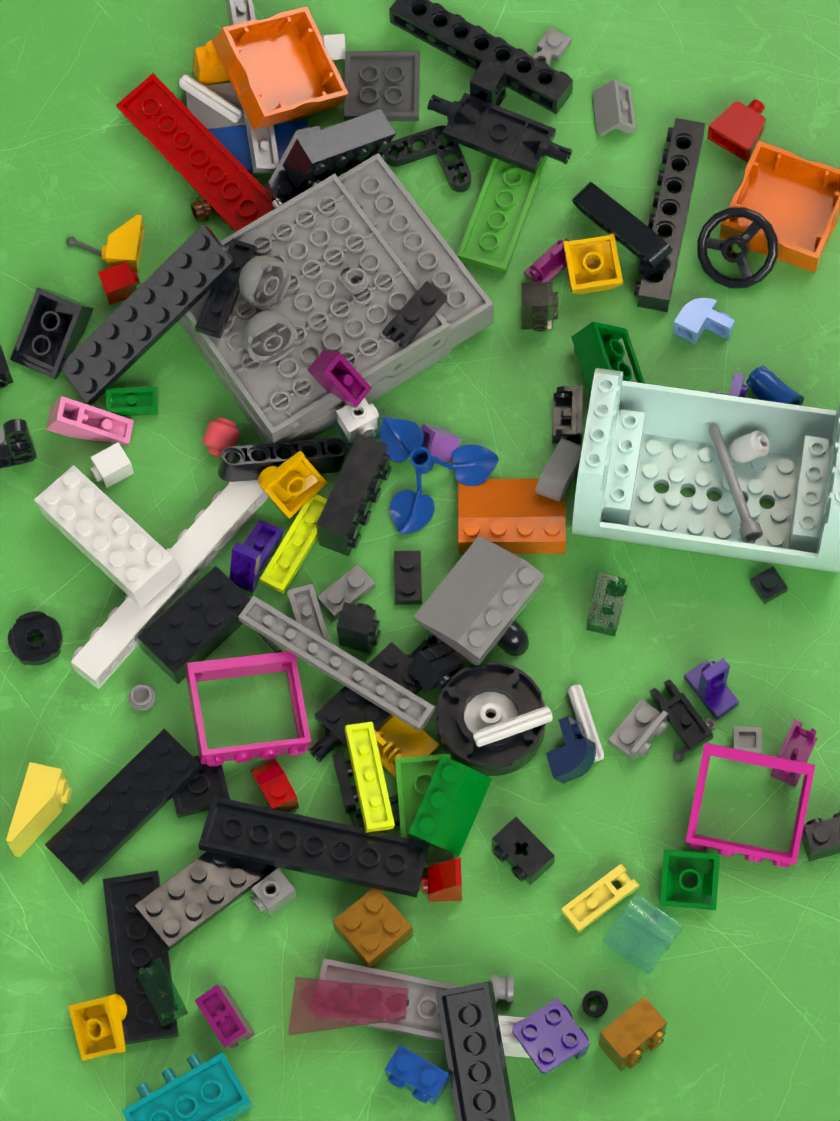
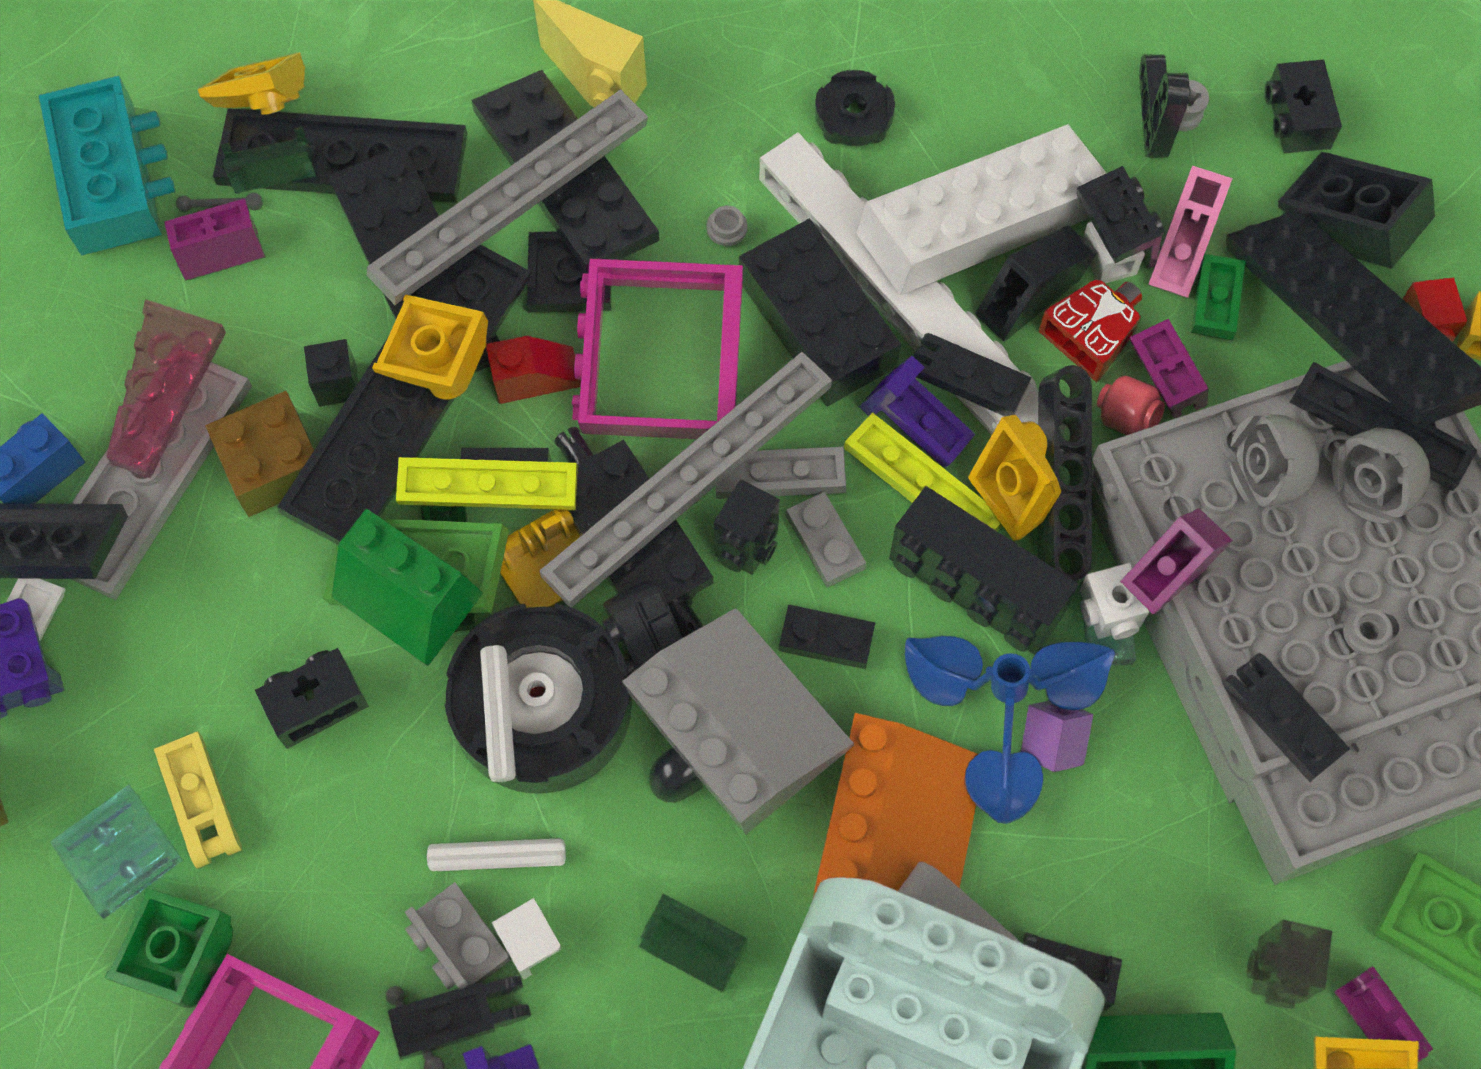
camera: 100 degrees right, 0 degrees up
(102, 454) = (1121, 216): none -> black bracket
(147, 503) = (1034, 280): none -> black slope
(166, 816) = (506, 197): none -> light grey plate
(169, 465) = (1093, 325): none -> red torso
(191, 418) = (1170, 367): none -> magenta hinge
(197, 1050) = (184, 203): none -> dark grey hinge
(228, 521) = (971, 375): none -> black hinge
(273, 893) = (367, 329): light grey brick -> none
(289, 828) = (434, 346): none -> yellow slope
(307, 906) = (331, 371): none -> black brick
(444, 881) = (297, 568): red slope -> none
(503, 987) = (110, 614): light grey wheel -> none
(577, 754) = (440, 816): dark blue brick -> none
(599, 1011) = (53, 745): black bush -> none
(629, 689) = (526, 936): none -> white panel

